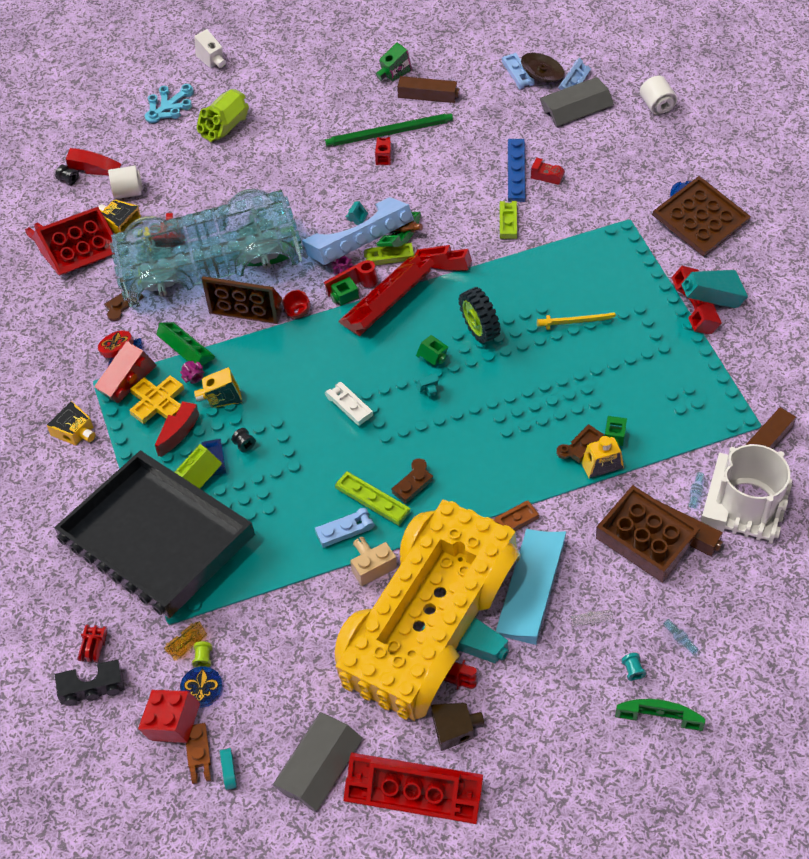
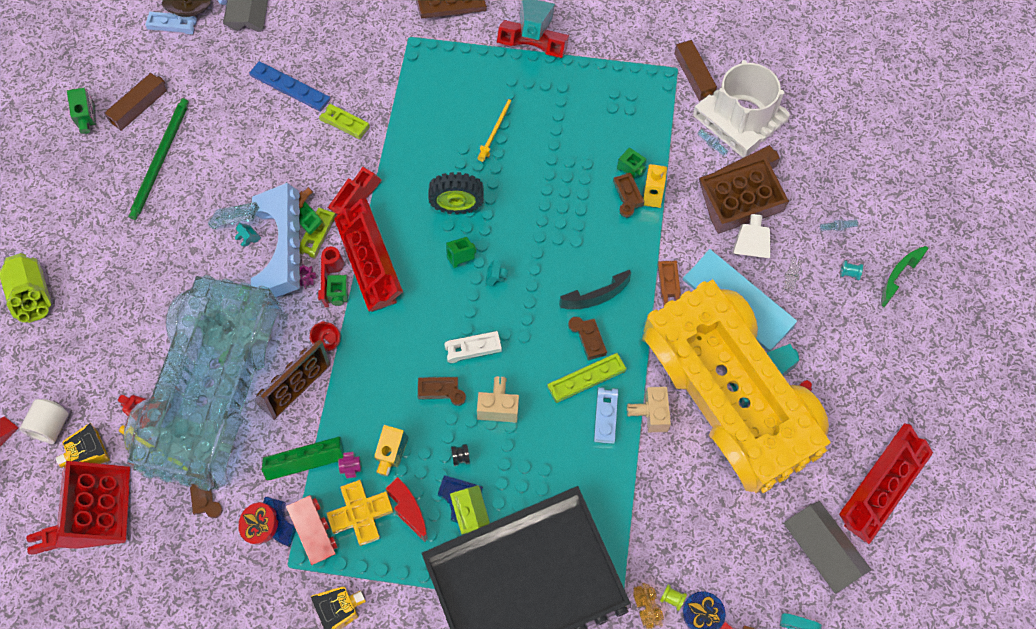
camera: 65 degrees left, 10 degrees up
(296, 400) = (441, 389): none -> reddish brown hinge
(303, 443) = (498, 405): none -> tan brick
(364, 194) = (233, 214): none -> clear light blue plate
(383, 151) = (184, 174): red leg -> none
(454, 723) = (845, 423): dark brown torso -> none
(478, 477) = (575, 301): none -> black slope
(546, 172) = (312, 65): red leg -> none
(603, 564) = (753, 239): none -> white torso

